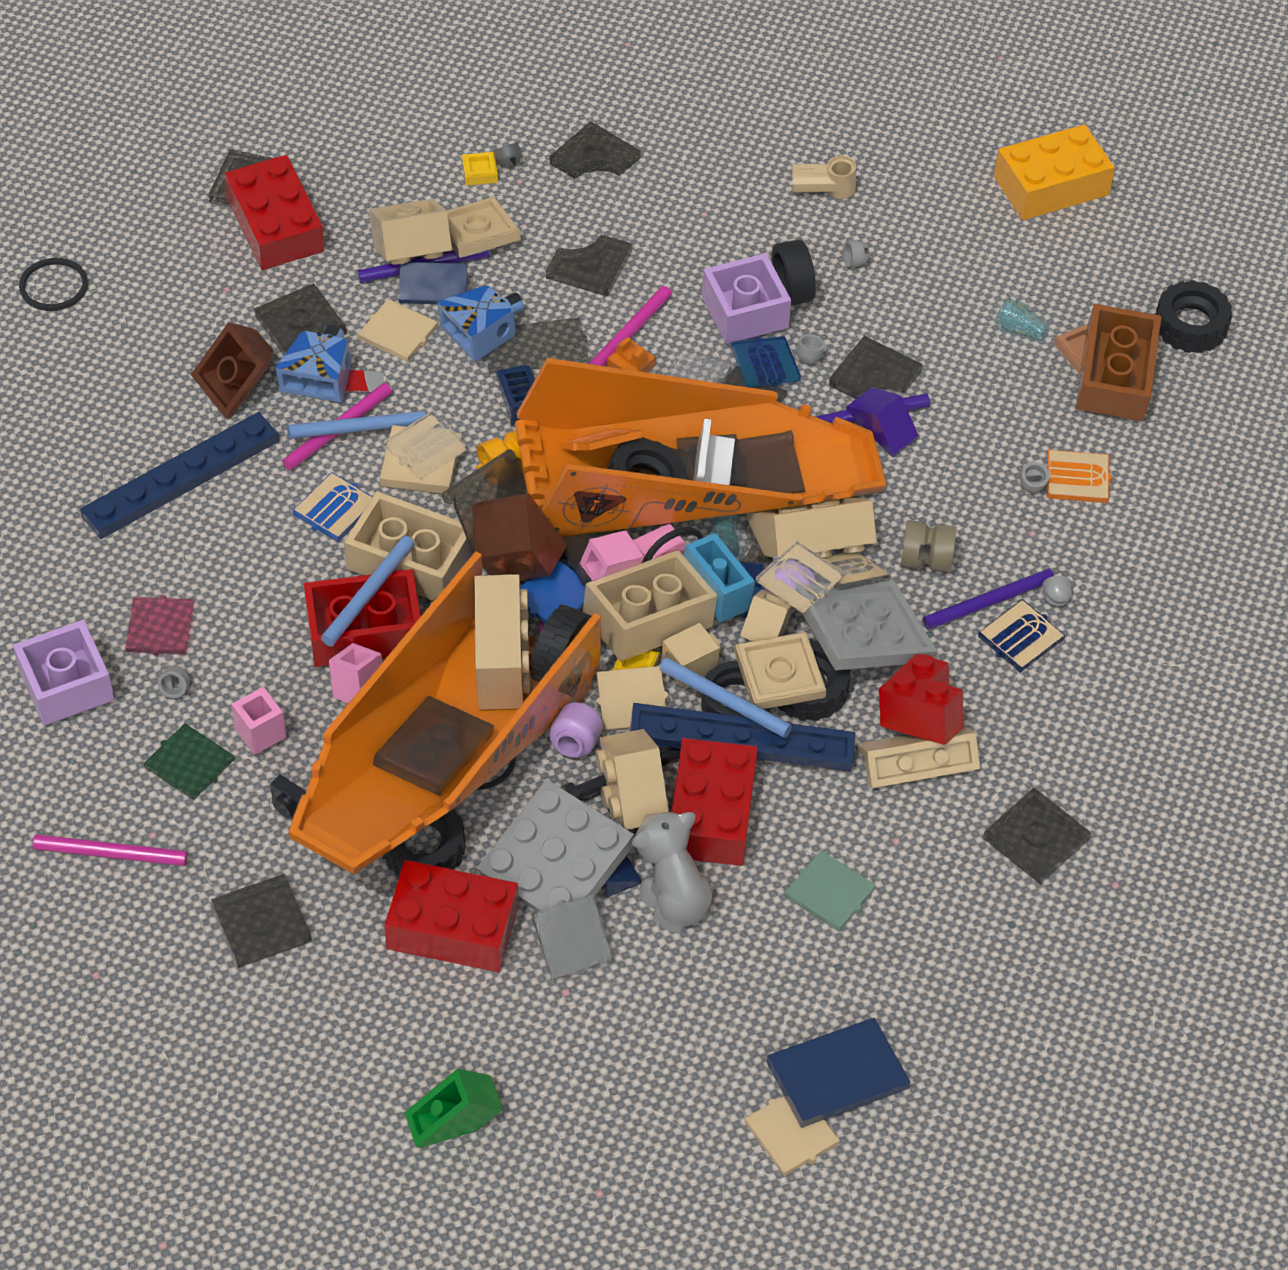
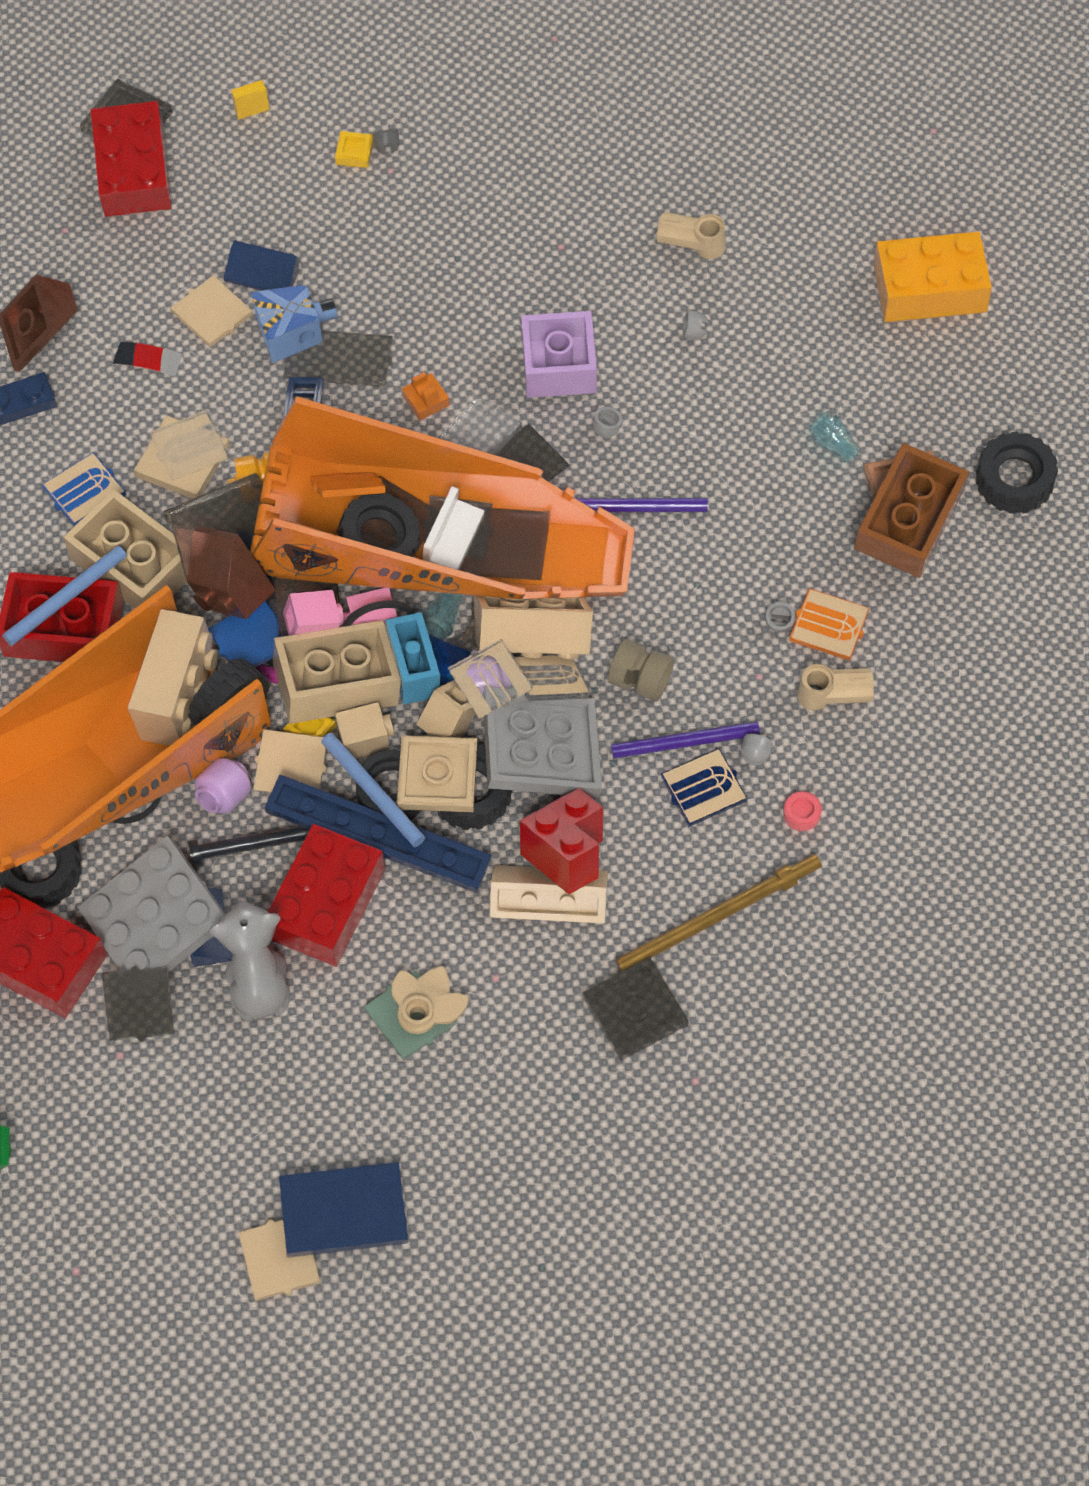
camera: 20 degrees right, 10 degrees up
(296, 313) = (120, 281): clear smoke tile -> none
(316, 365) = (116, 334): medium blue torso -> none
(352, 424) = (128, 407): medium blue bar -> none
(352, 670) = (27, 669): bright pink brick -> none
(355, 411) = (115, 403): dark pink bar -> none
(366, 143) = (250, 99): none -> yellow tile
(392, 270) = (274, 243): dark purple bar -> none
(410, 230) = (251, 209): tan brick -> none
(433, 745) = (73, 772): clear smoke tile -> none
(480, 227) = (325, 215): tan tile -> none
(591, 267) = (427, 282): clear smoke tile -> none
(592, 151) = (474, 153): clear smoke tile -> none
(632, 777) = (245, 856): tan brick -> none
(633, 324) = (435, 361): dark pink bar -> none
(765, 361) = (559, 426): clear blue piece -> none
(795, 270) = (616, 336): black tyre -> none
(843, 868) = (429, 996): none -> tan plate
(874, 366) = (664, 457): clear smoke tile -> none
(886, 417) = (651, 519): dark purple slope -> none
(1101, 524) = (837, 686): none -> tan piece
(1119, 635) = (802, 811): none -> coral tile
(1124, 696) = (782, 878): none -> pearl gold bar

